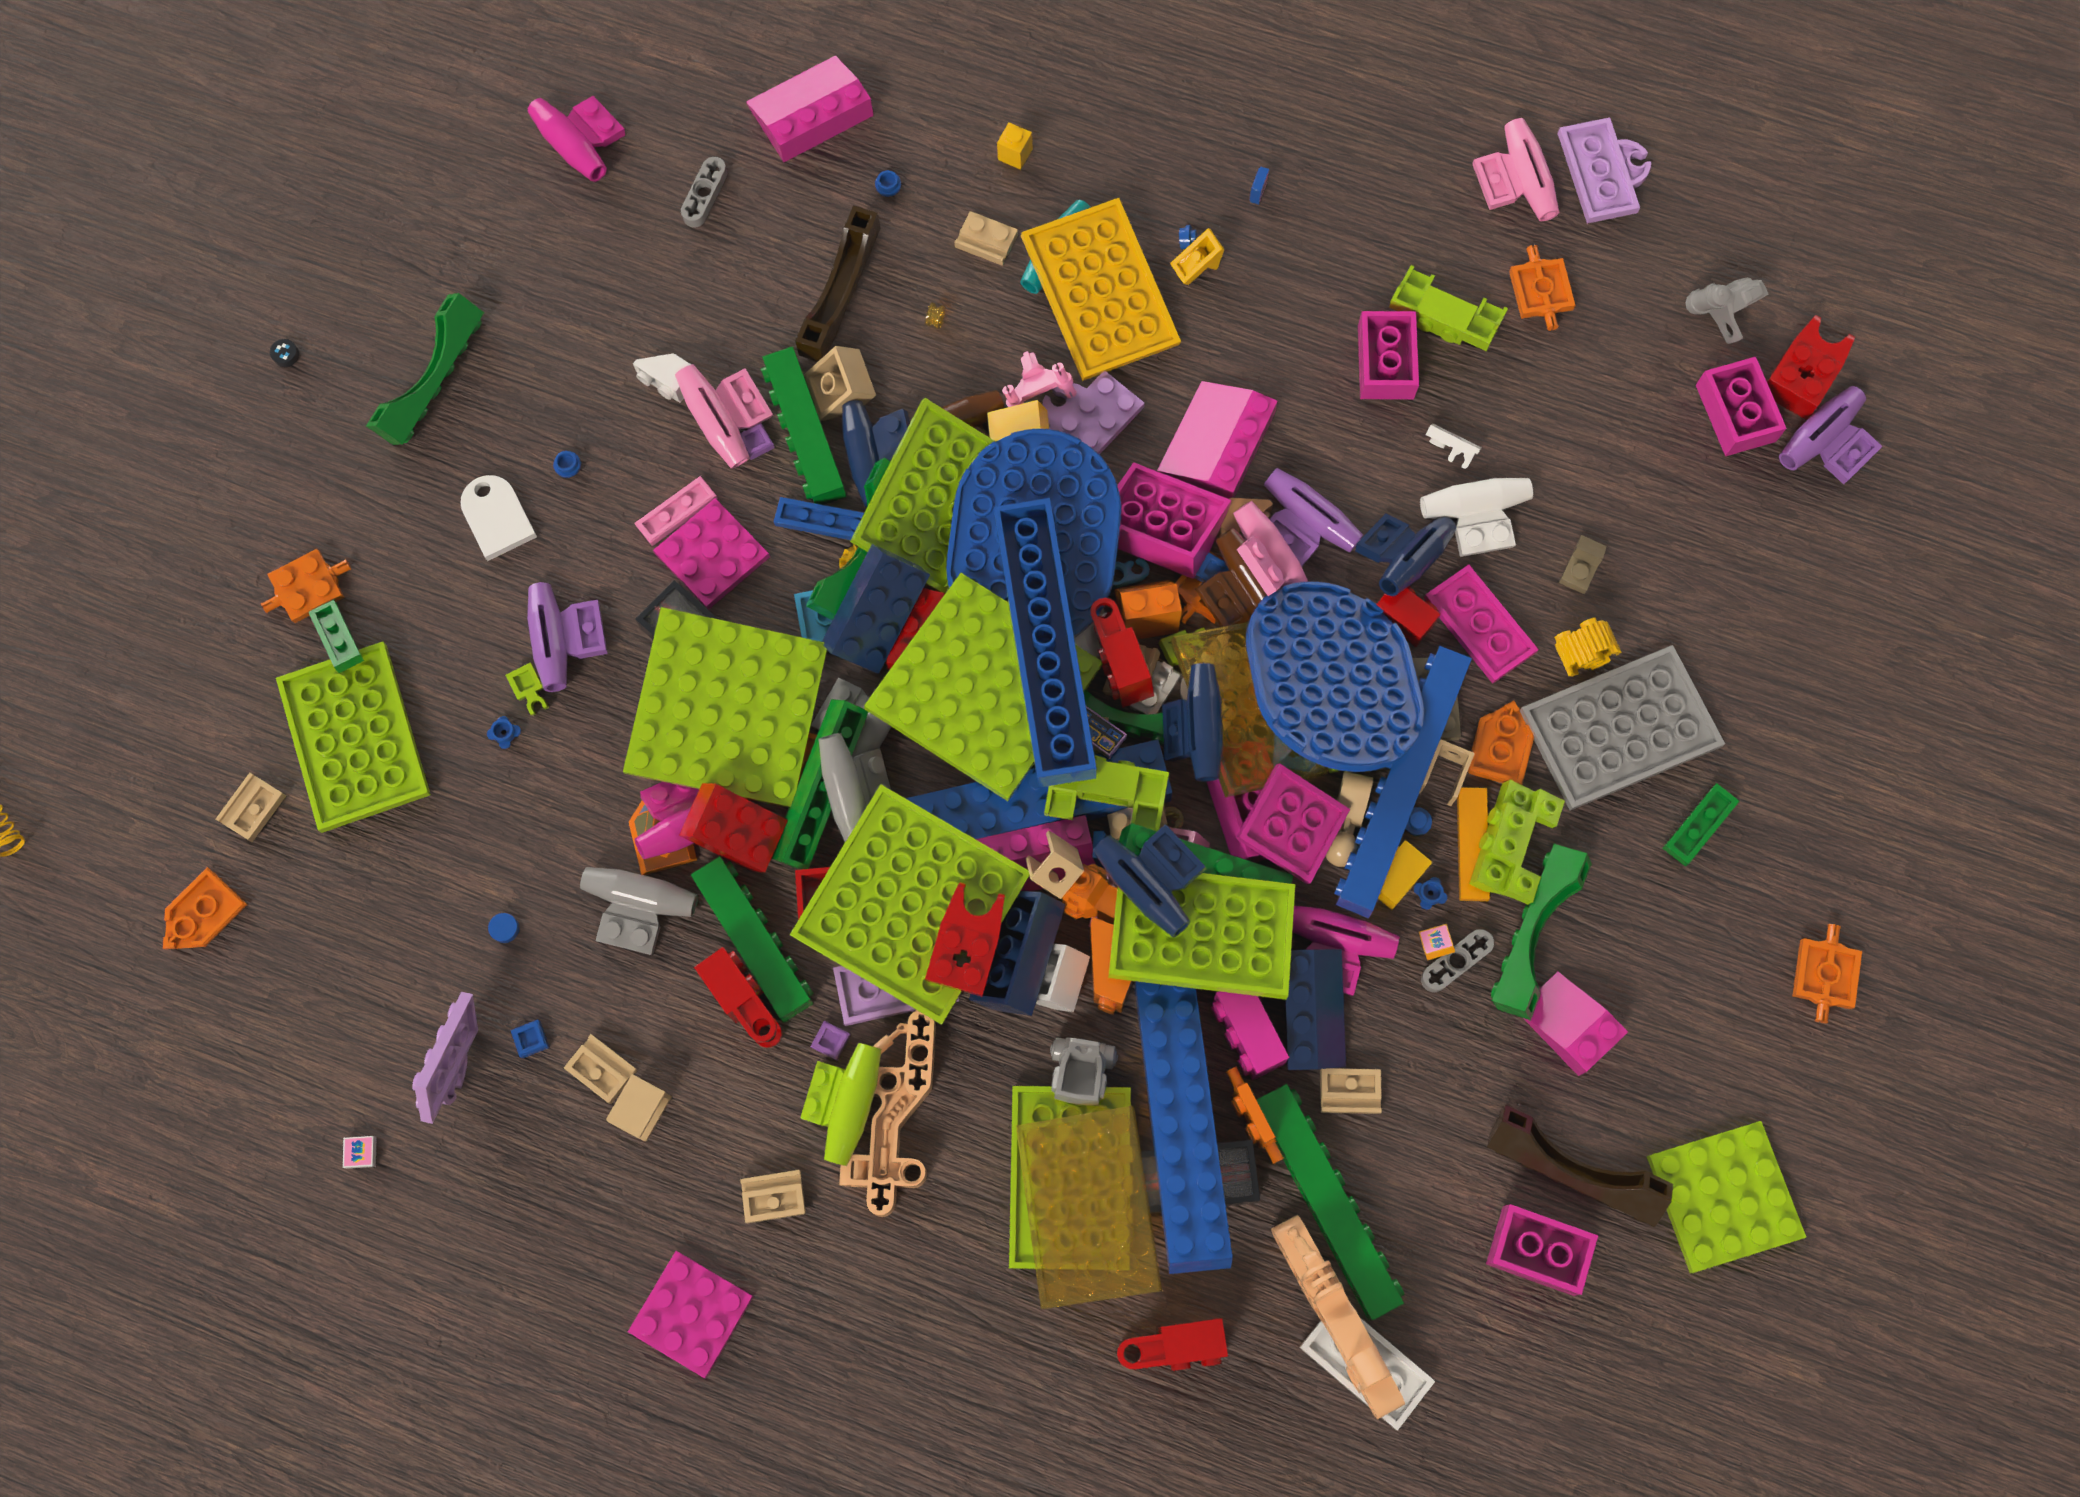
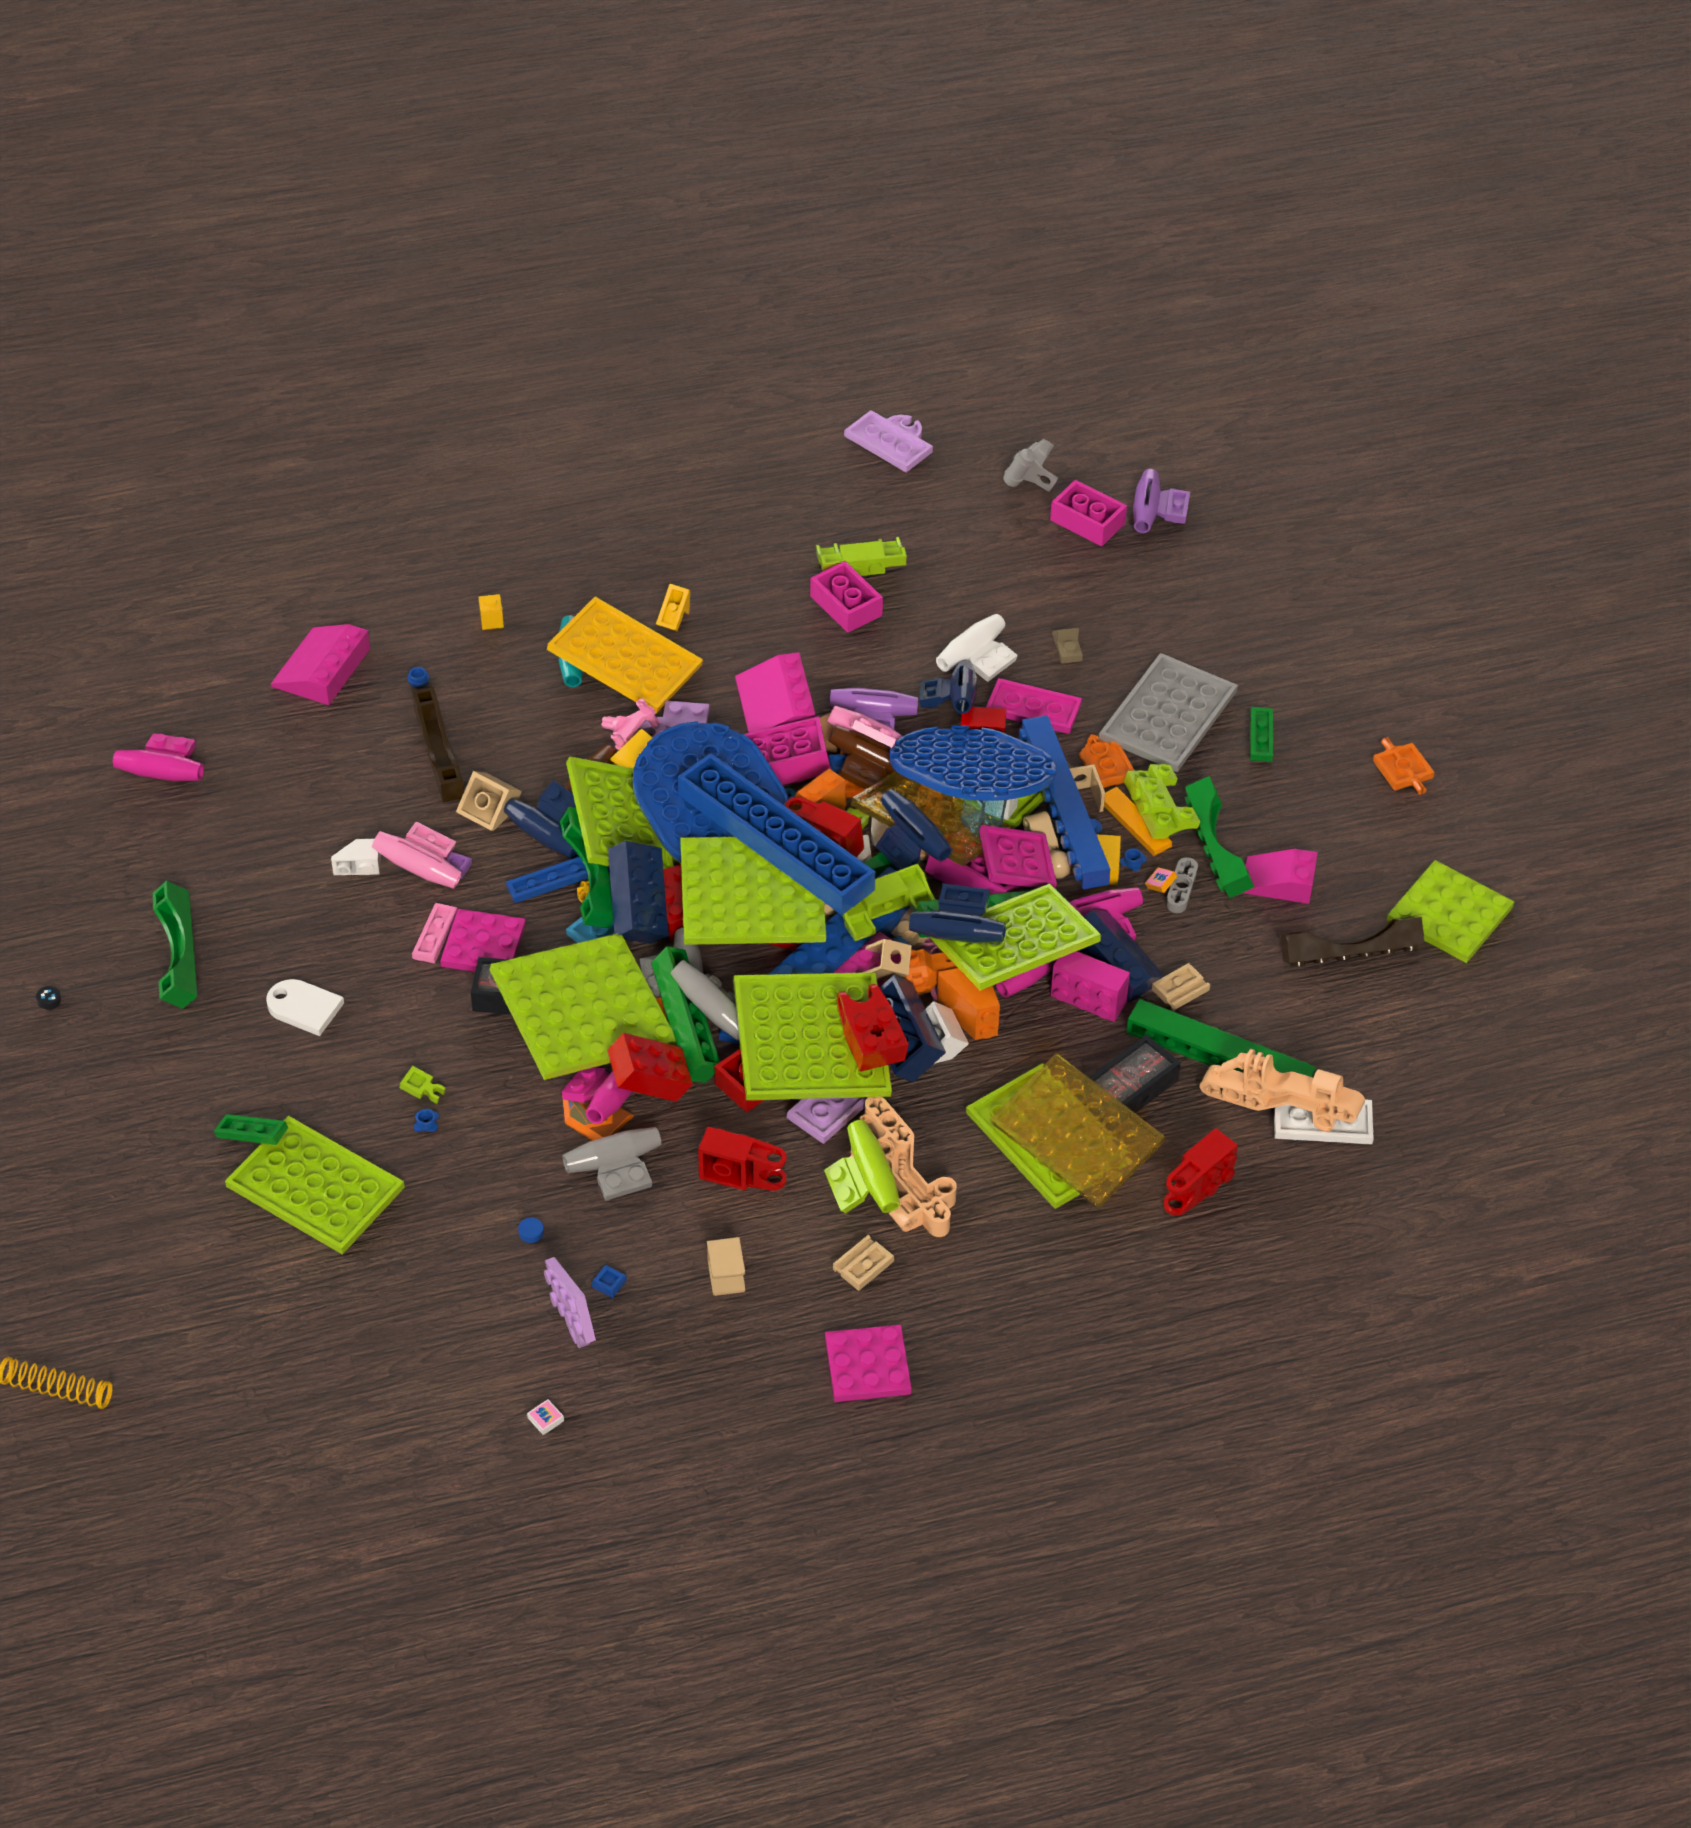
camera: 40 degrees left, 25 degrees down
(200, 912) = (292, 1351): orange tile -> none
(250, 807) = (275, 1267): tan plate -> none
(305, 585) = (194, 1120): orange plate -> none
(555, 635) = (419, 1041): medium lavender plate -> none
(567, 464) = (329, 947): blue plate -> none
(600, 1069) = (677, 1264): tan plate -> none
(704, 203) = (282, 741): light grey beam -> none
(752, 939) = (689, 1123): green brick -> none
(804, 427) = (484, 835): green brick -> none
(830, 1040) = (820, 1158): medium lavender tile -> none
(935, 316) = (521, 730): clear yellow bush -> none
(986, 238) = (515, 673): tan plate -> none
(1081, 1070) = (1003, 1066): light grey piece -> none
(1183, 1129) = (1096, 1046): blue brick -> none
(1187, 236) = (654, 603): blue plate -> none
(1257, 1125) = (1132, 1024): orange plate -> none
(1259, 185) = (677, 553): blue tile -> none
(1442, 437) = (922, 622): white plate -> none
(1518, 173) = (840, 466): bright pink plate -> none
(1542, 288) = (909, 517): orange plate -> none
(1542, 1250) = (1370, 994): dark pink brick -> none
(1586, 646) = (1110, 677): yellow brick -> none
(1808, 370) = (1112, 473): red brick -> none

